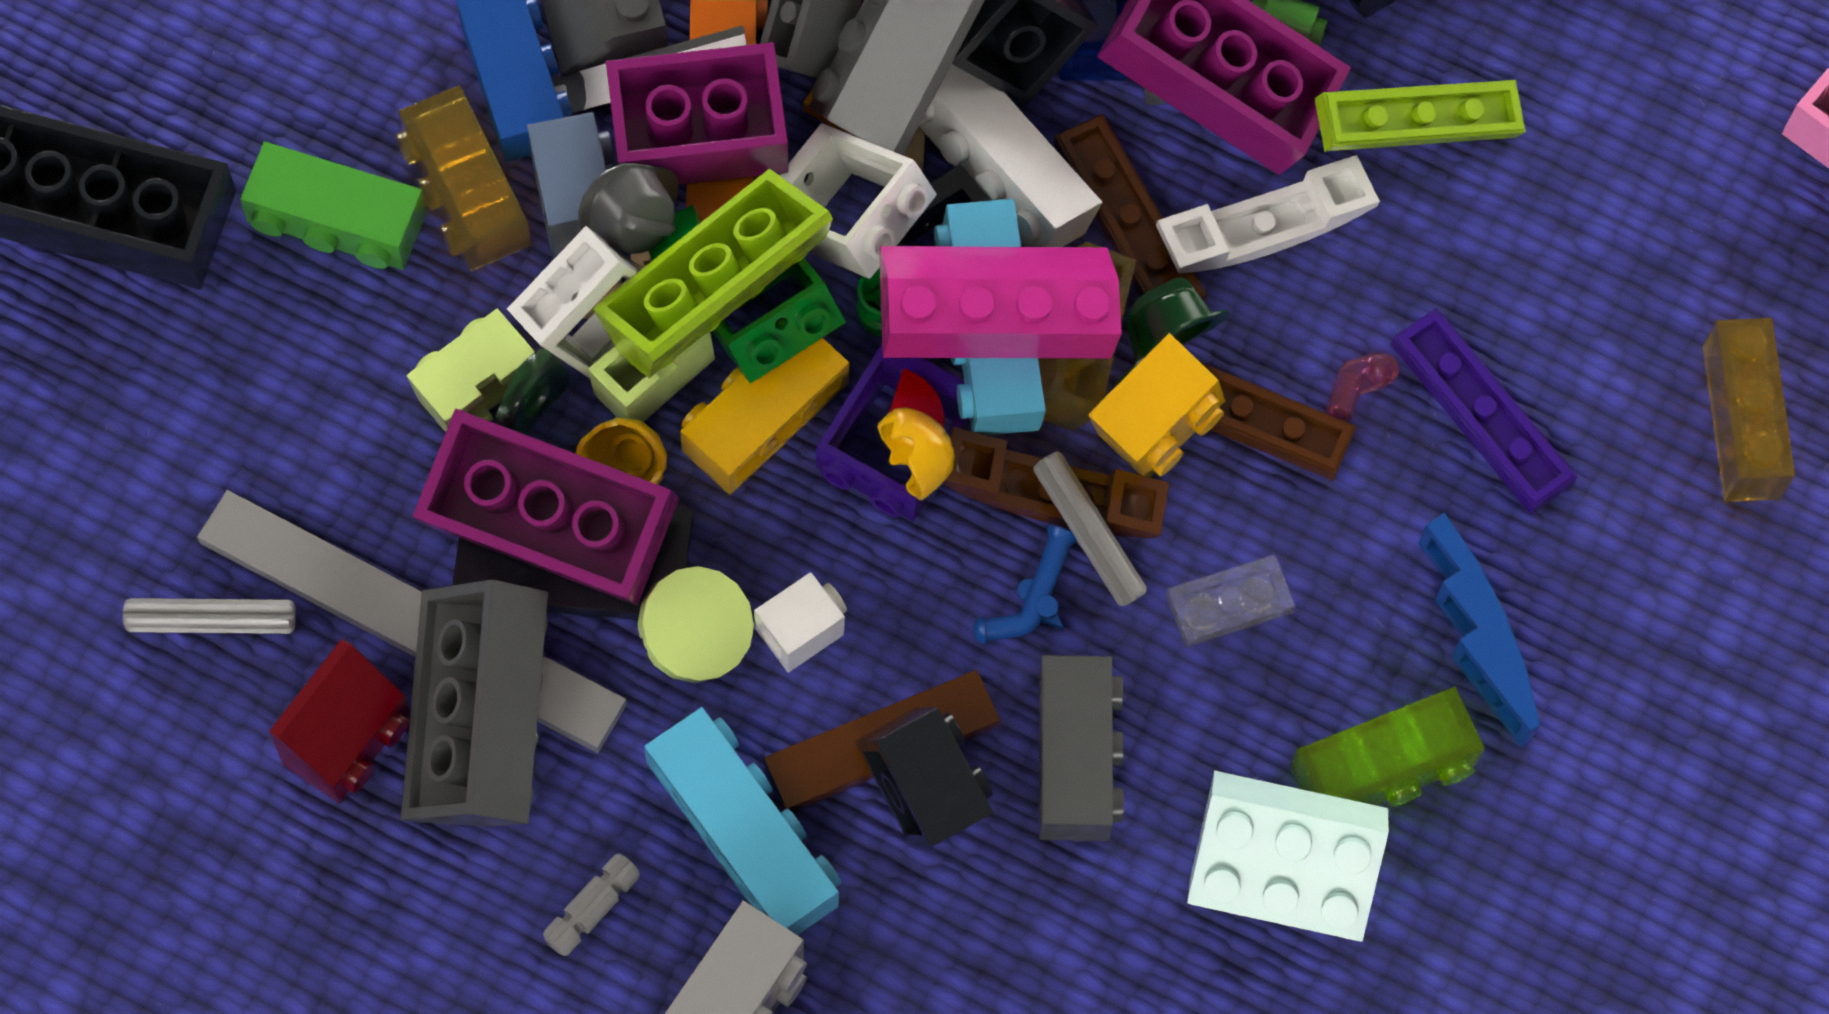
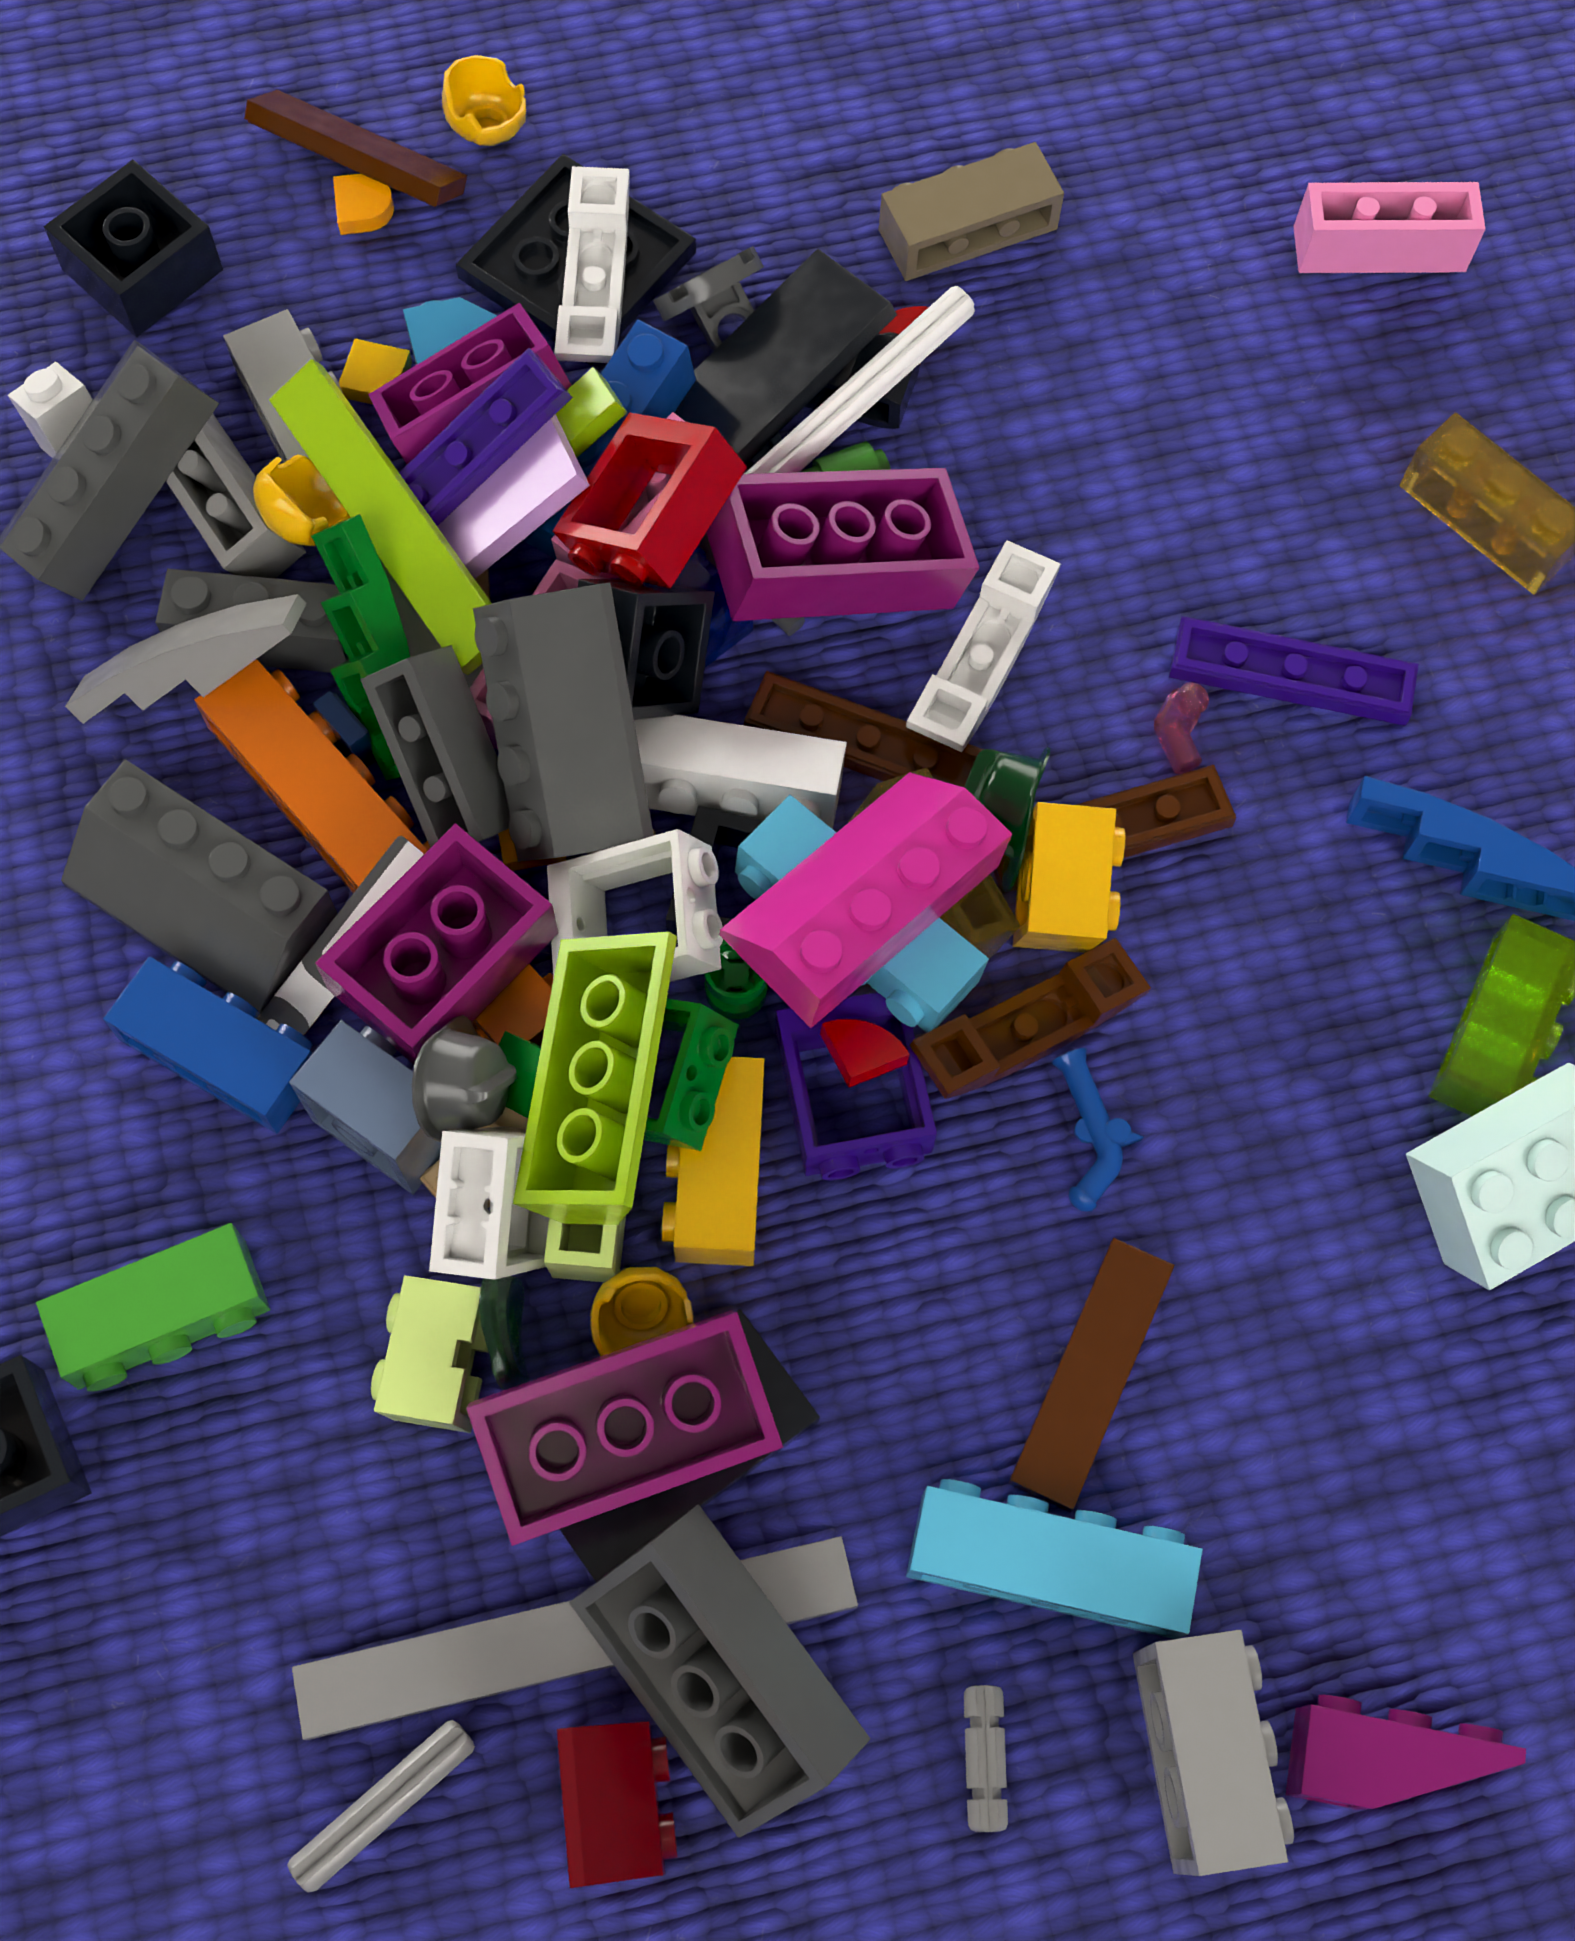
camera: 40 degrees left, 0 degrees up
(462, 179) = (255, 1180): clear yellow brick -> none
(696, 624) = (842, 1412): yellowish green tile -> none
(801, 621) = (930, 1326): white brick -> none
(921, 445) = (914, 1081): yellow hair -> none
(926, 775) = (1183, 1374): black brick -> none
(1078, 748) = (1262, 1233): dark grey brick -> none
(1089, 529) = (1093, 1032): light grey axle -> none
(1230, 600) = (1258, 996): clear plate -> none
(1419, 115) = (1028, 468): lime tile -> none

